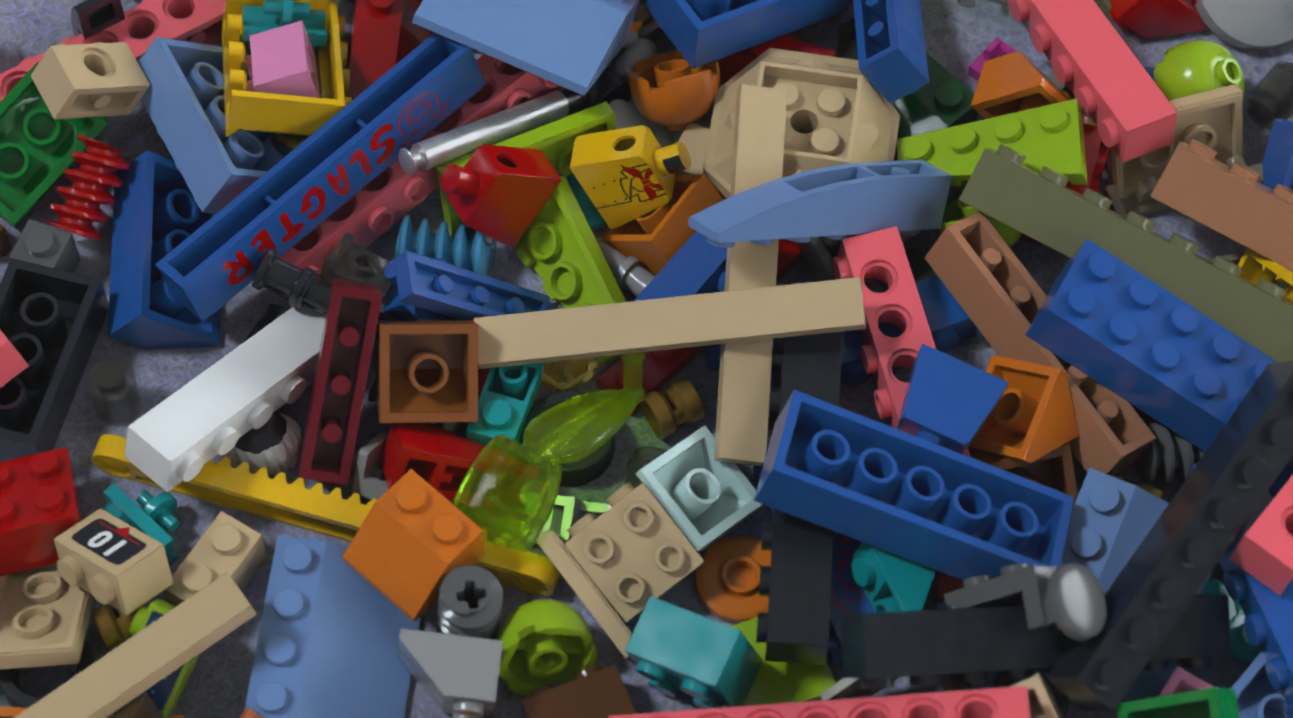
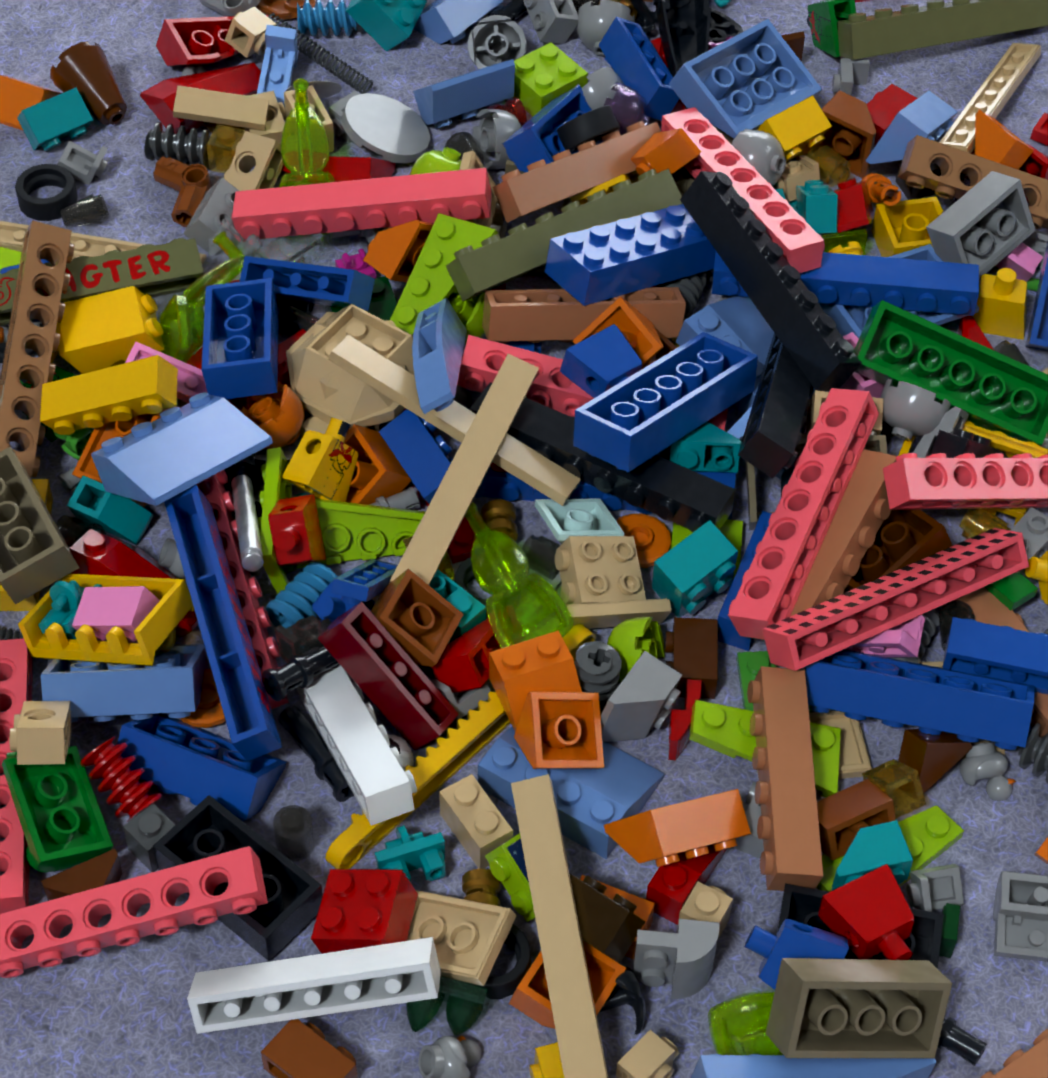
camera: 65 degrees left, 10 degrees down
(113, 561) = (448, 864): tan brick -> none
(355, 605) = (561, 730): none -> orange slope
(1051, 596) = (786, 353): dark grey piece -> none

